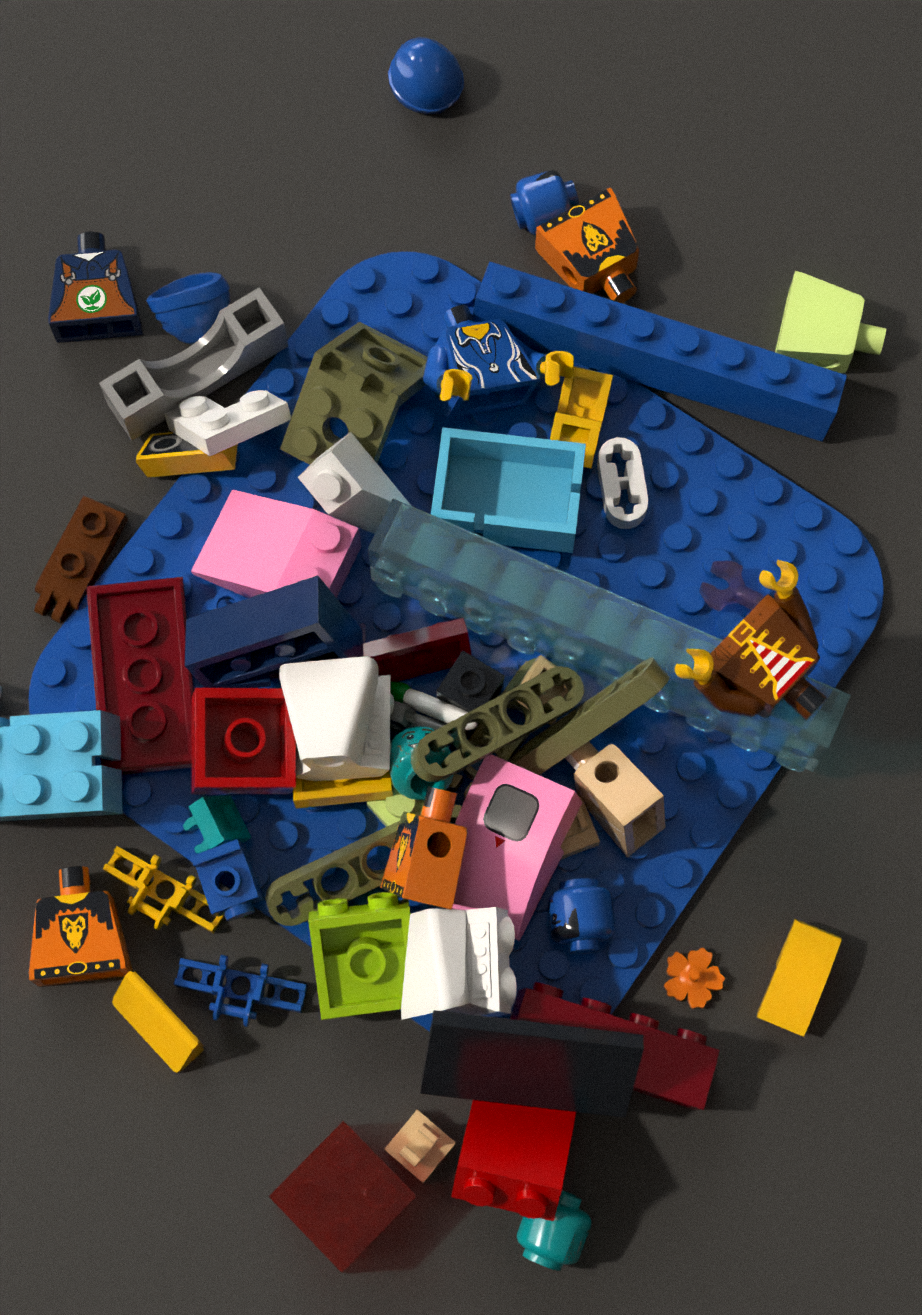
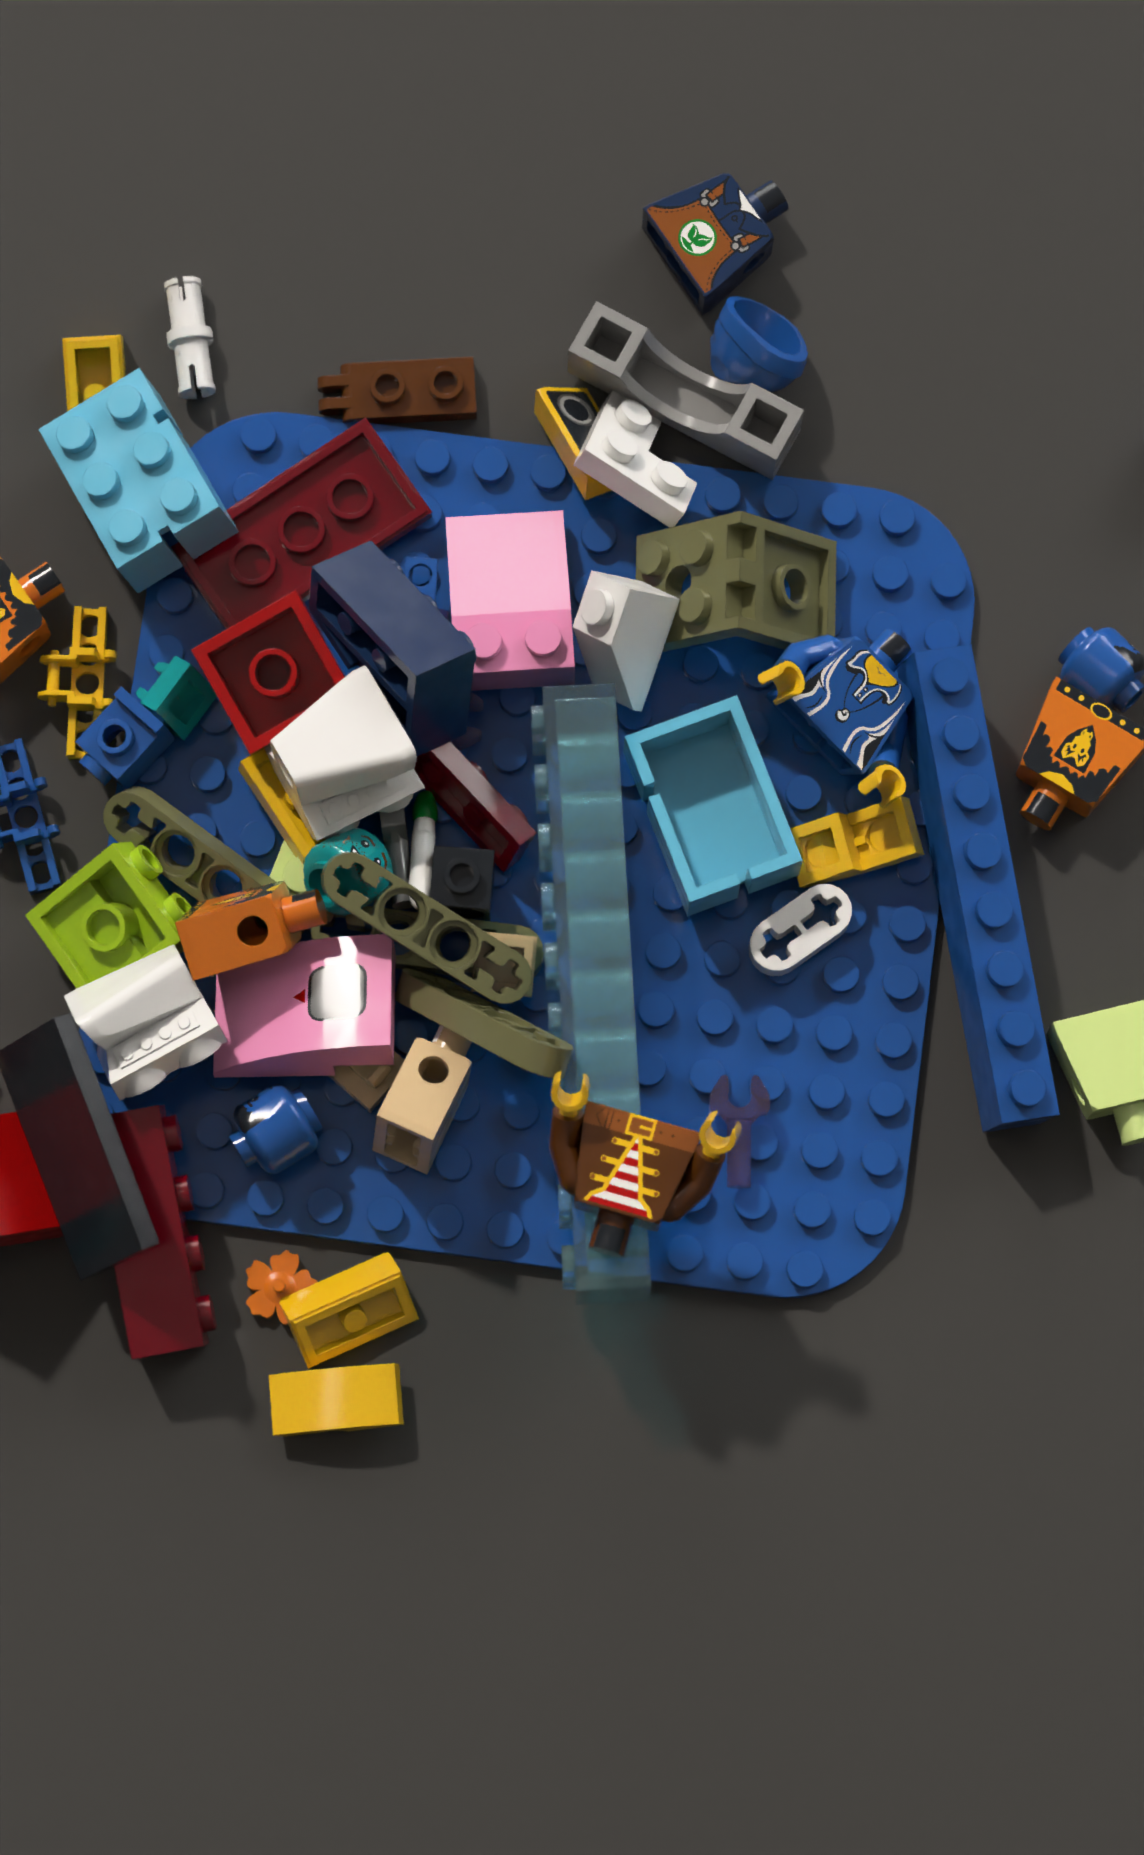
camera: 60 degrees right, 5 degrees up
(734, 934) = (348, 1309): none -> yellow slope

